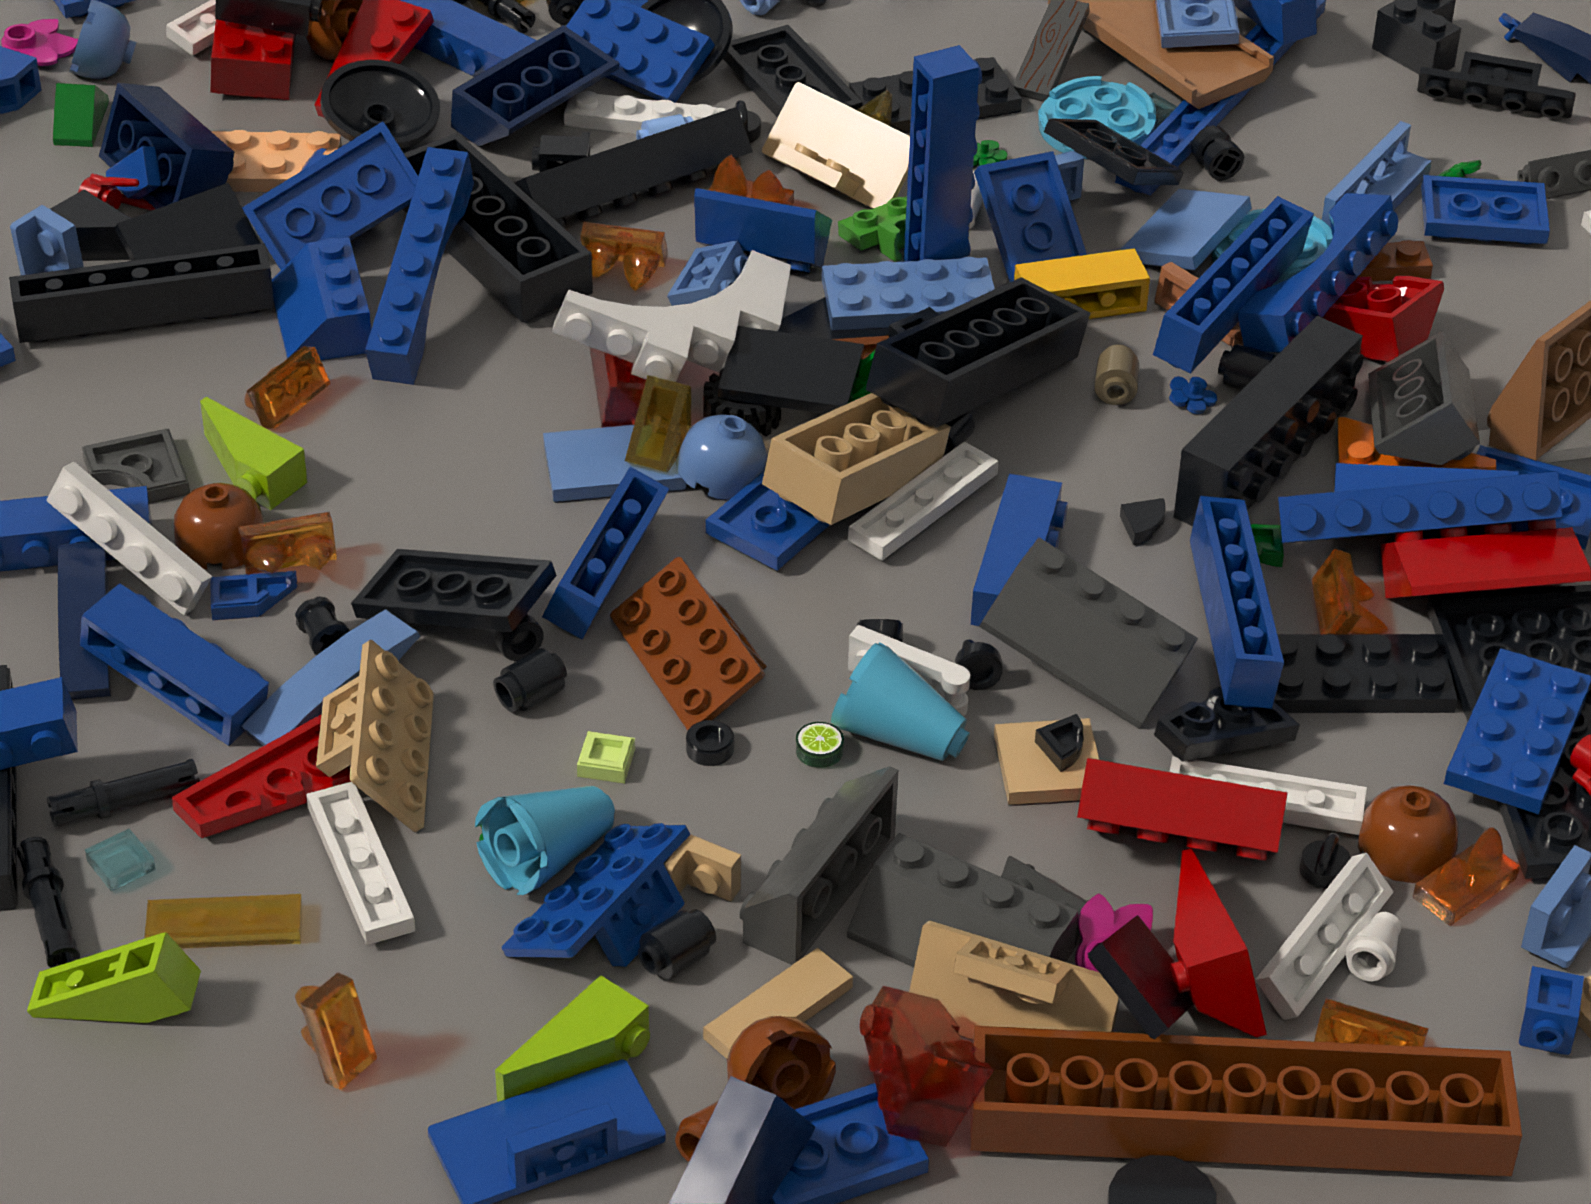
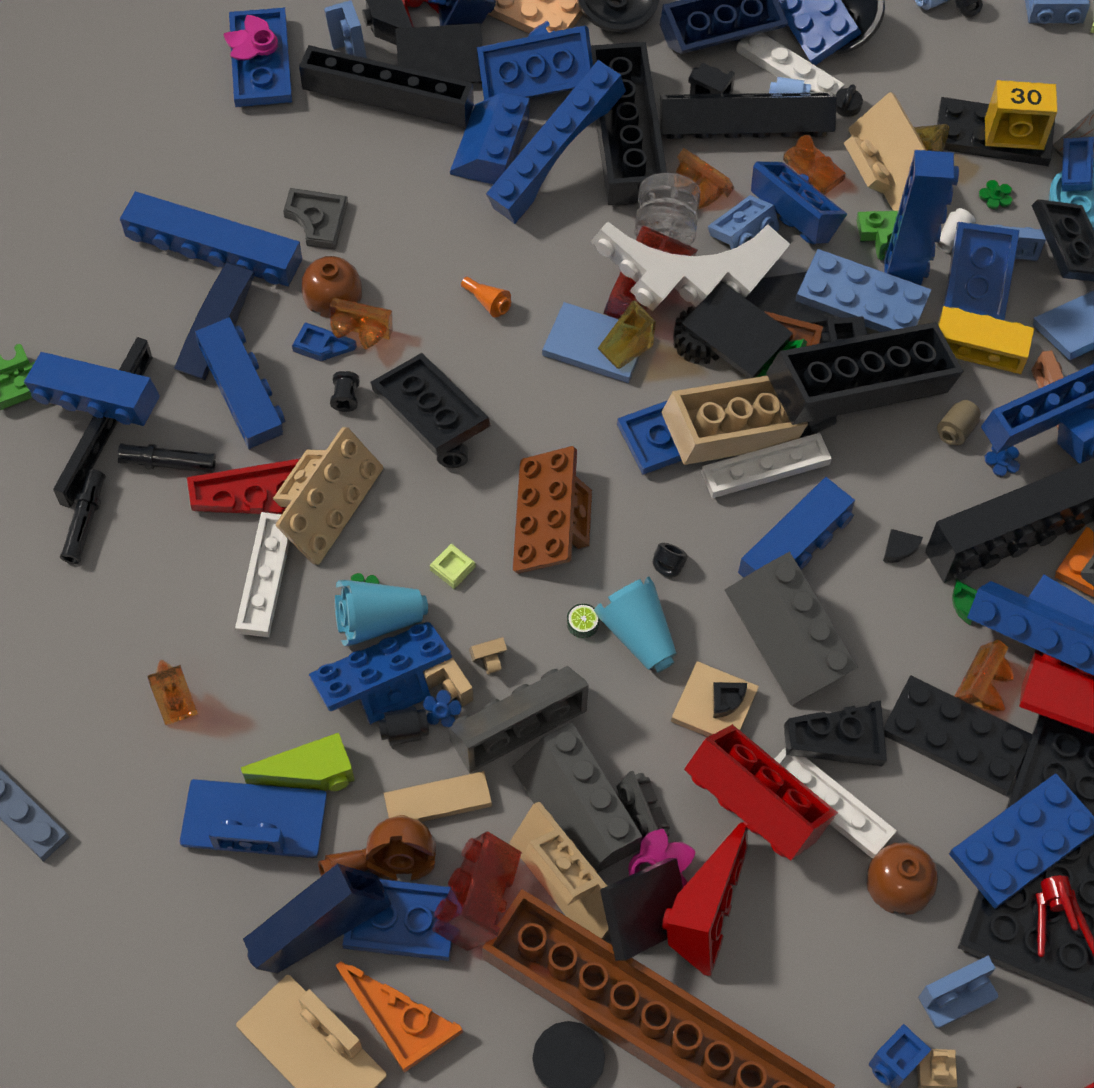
camera: 30 degrees right, 20 degrees up
(120, 859) = (140, 503): clear light blue tile -> none
(120, 984) = (84, 595): lime slope -> none
(128, 538) = (264, 281): white plate -> none
(227, 920) = (171, 576): clear yellow tile -> none
(253, 455) = (380, 246): lime slope -> none
(287, 387) = (432, 197): clear orange tile -> none
(302, 695) = (317, 434): medium blue slope -> none
(447, 462) = (493, 299): none -> orange cone
(530, 680) = (439, 490): black brick -> none
(605, 553) = (538, 417): blue brick -> none
(611, 271) = (669, 206): none -> clear wheel
(710, 743) = (519, 586): black tile -> none
(713, 902) = (442, 708): none -> blue plant
(721, 455) = (656, 373): medium blue cylinder -> none
(729, 821) = (488, 652): none -> tan tile
(778, 60) = (906, 68): black plate -> none
(942, 675) = (670, 596): white plate -> none
(981, 32) = (1020, 114): none -> yellow brick
(982, 662) = (715, 610): black tile -> none
(1058, 87) = (1078, 164): none -> blue tile
(1236, 603) = (902, 651): blue brick -> none
(1242, 365) = (1049, 457): black brick -> none
(1322, 936) = (794, 926): white plate -> none
(1323, 860) = (836, 869): black tile -> none
(1355, 1025) = (777, 1026): clear orange tile -> none
(1374, 948) = (821, 950): white cone -> none
(1467, 879) = (917, 930): clear orange tile -> none

